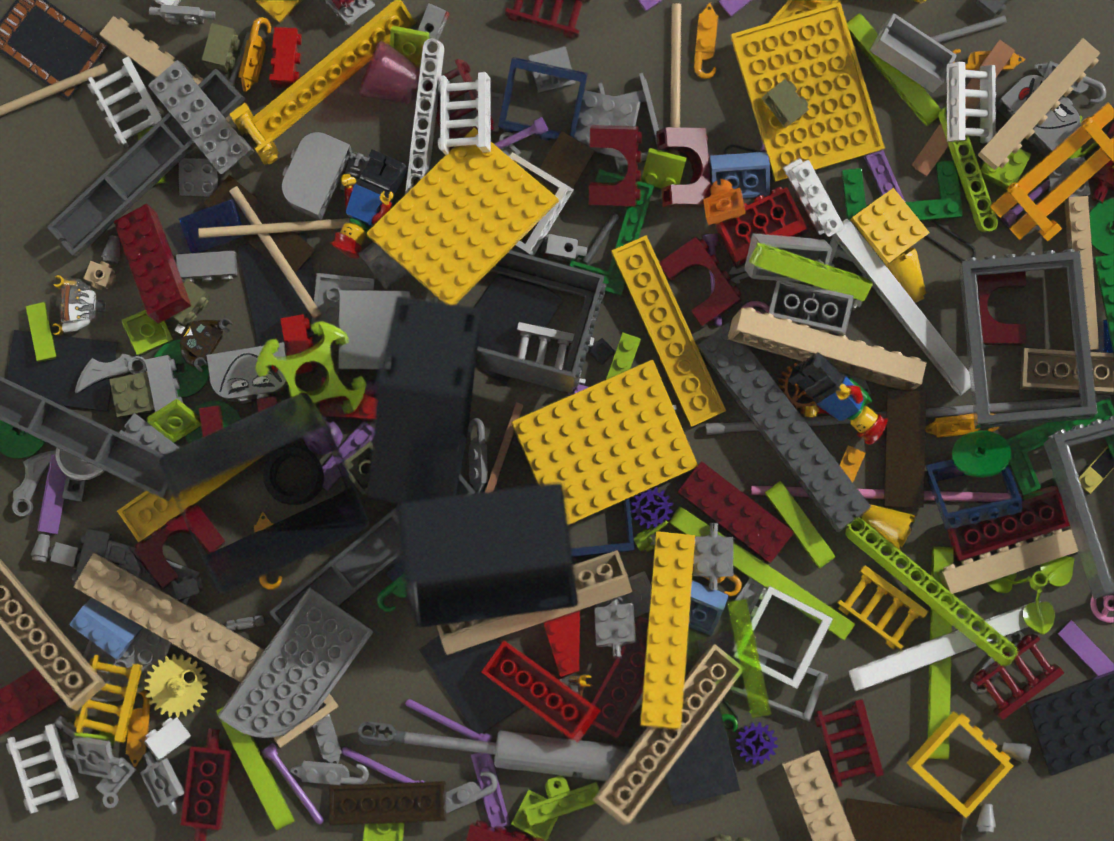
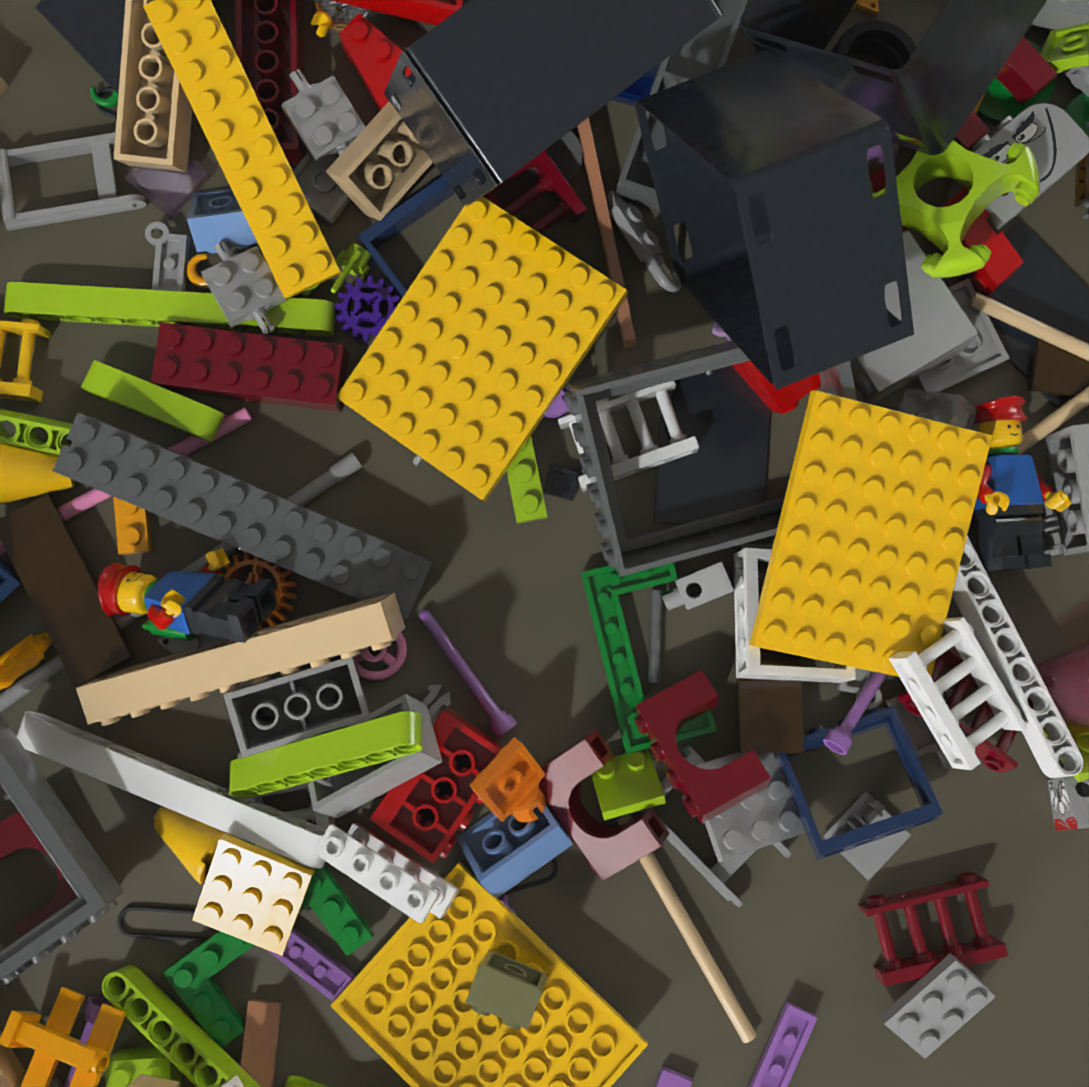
camera: 150 degrees right, 0 degrees up
(668, 331) = (487, 561): yellow plate -> none
(696, 254) = (437, 657): dark red arch -> none
(705, 41) = (676, 1010): light orange plate -> none
(748, 741) = (52, 82): dark purple gear -> none
(749, 658) = (113, 171): clear neon green plate -> none
(826, 620) = (36, 232): white window -> none

